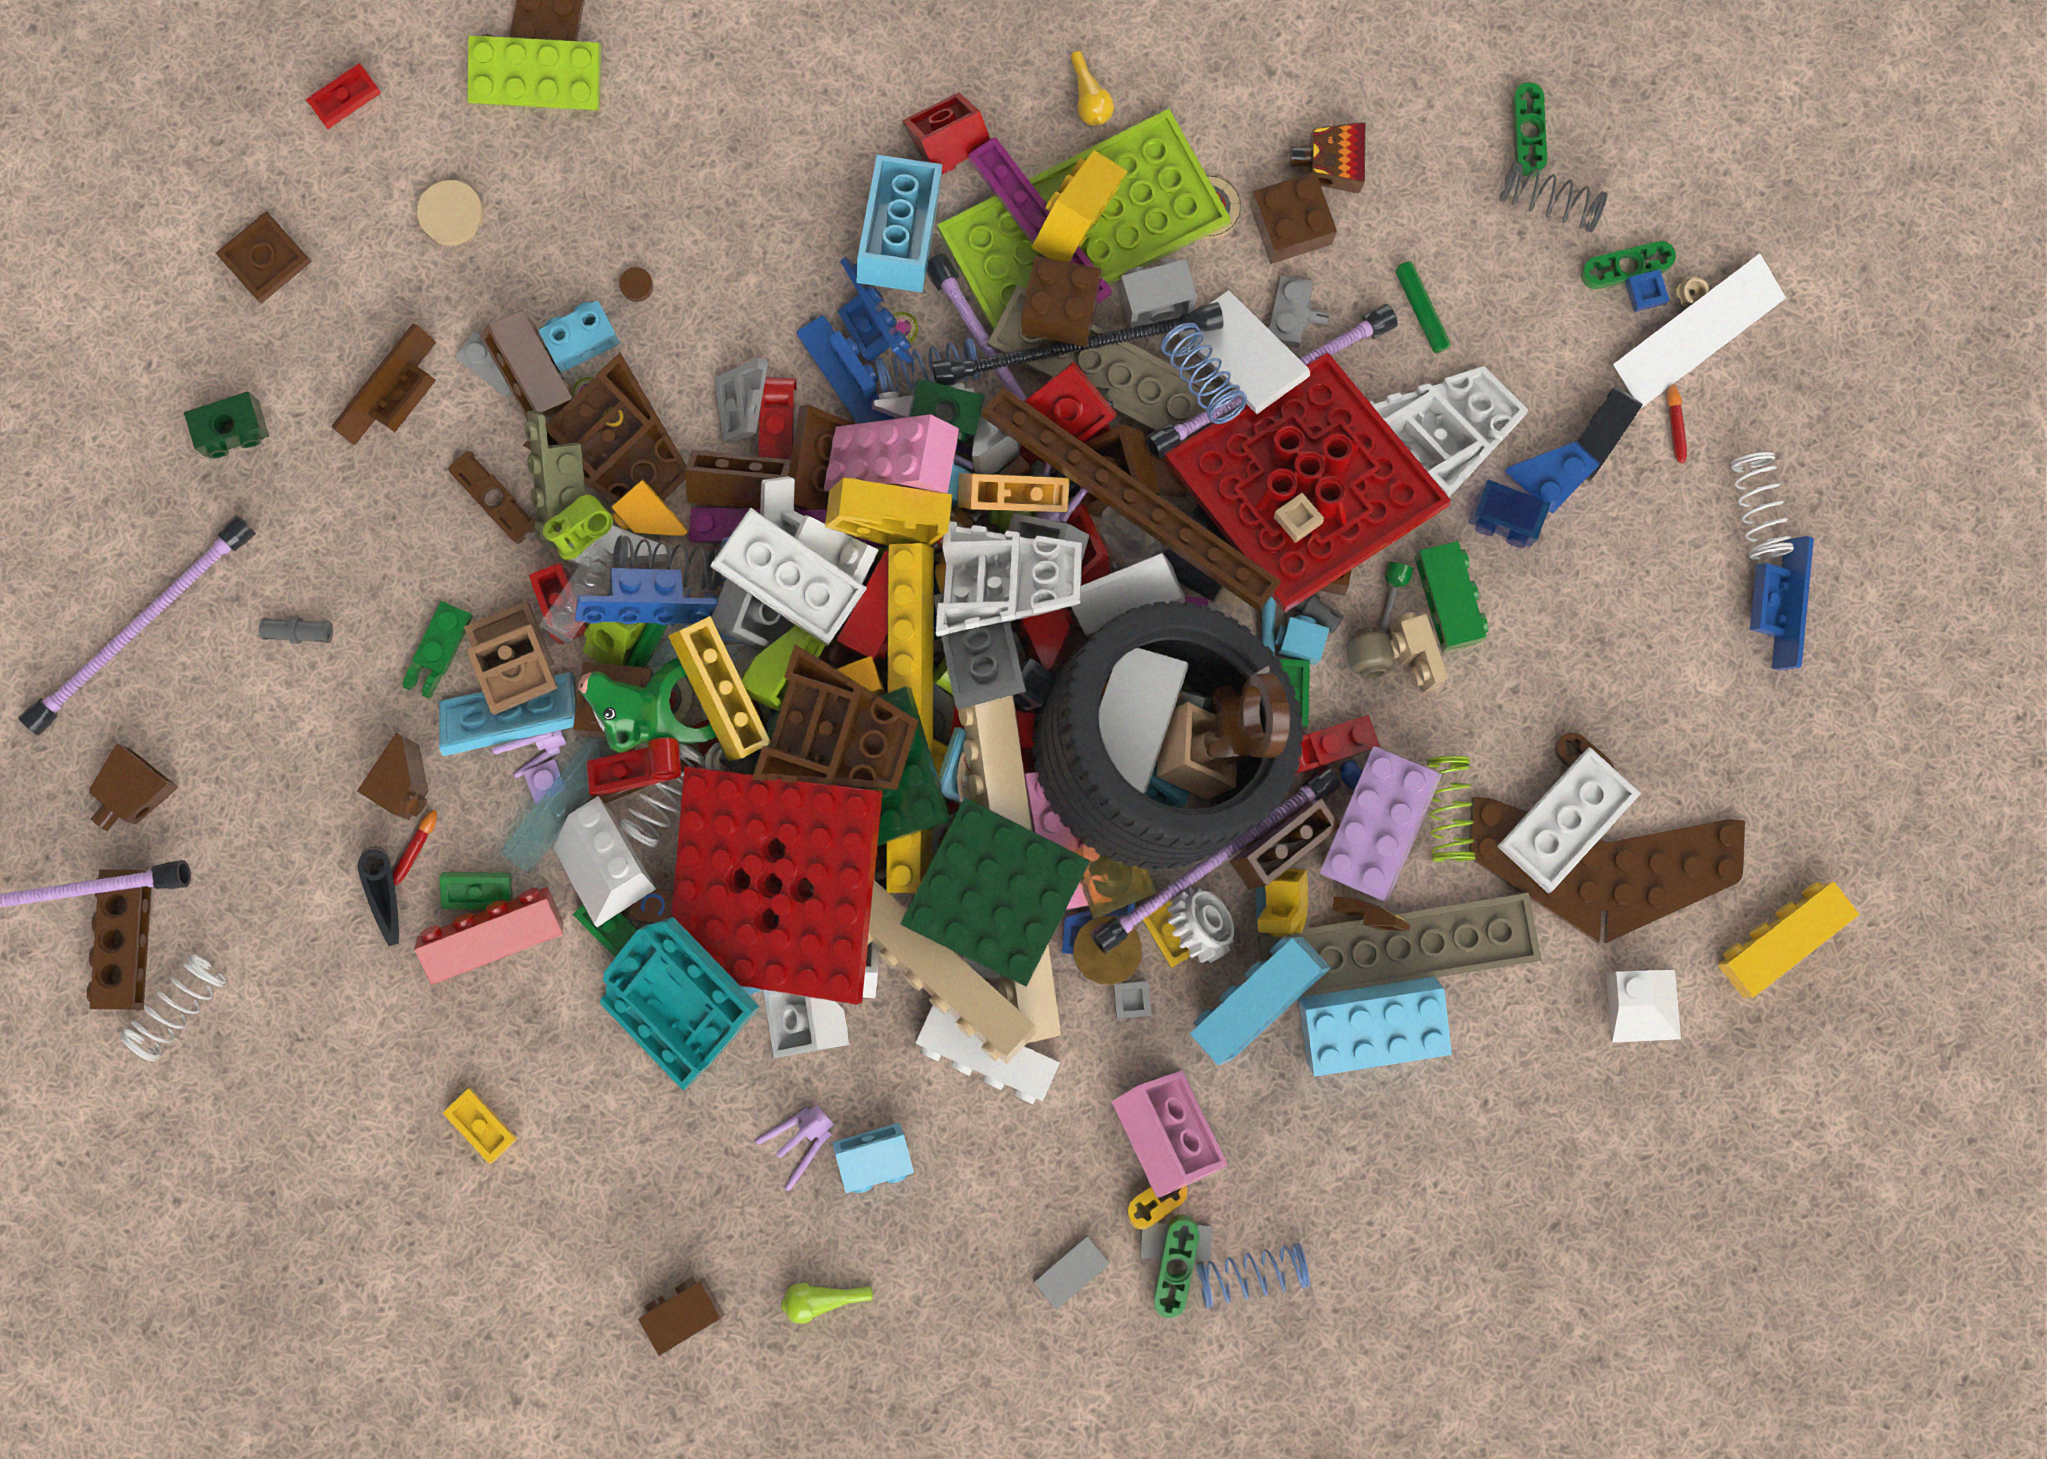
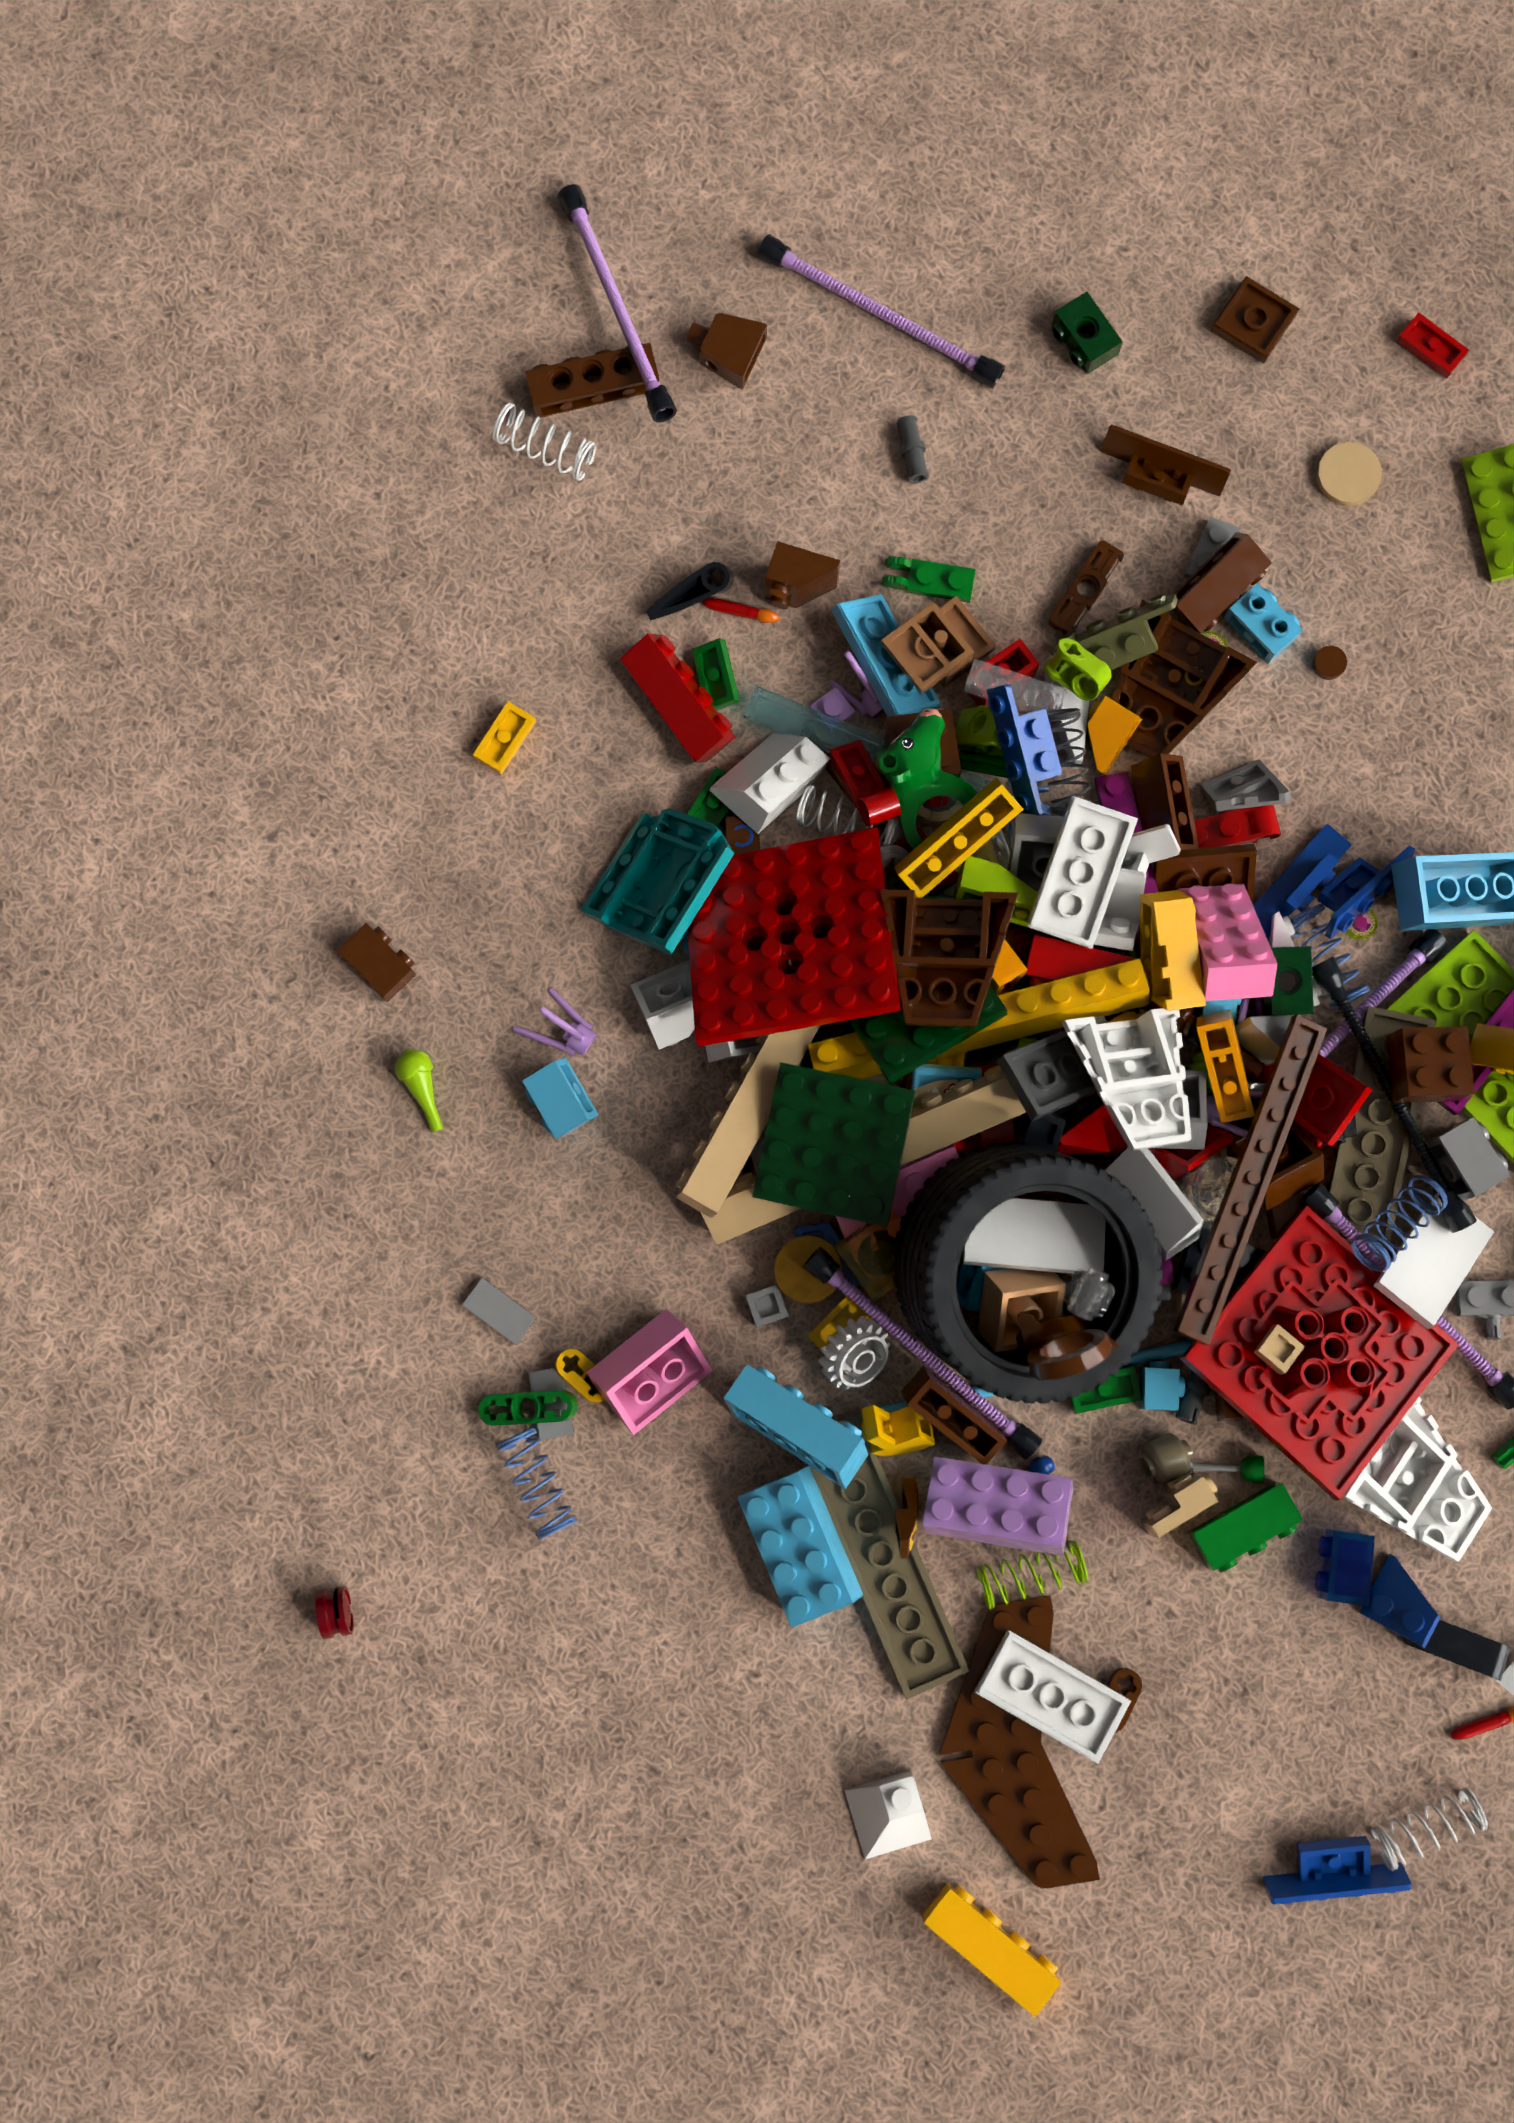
camera: 80 degrees right, 0 degrees up
(1027, 1071) = (675, 1220): white brick -> none
(1204, 681) = (1089, 1293): none -> clear head
(1337, 743) = (1063, 1441): red plate -> none

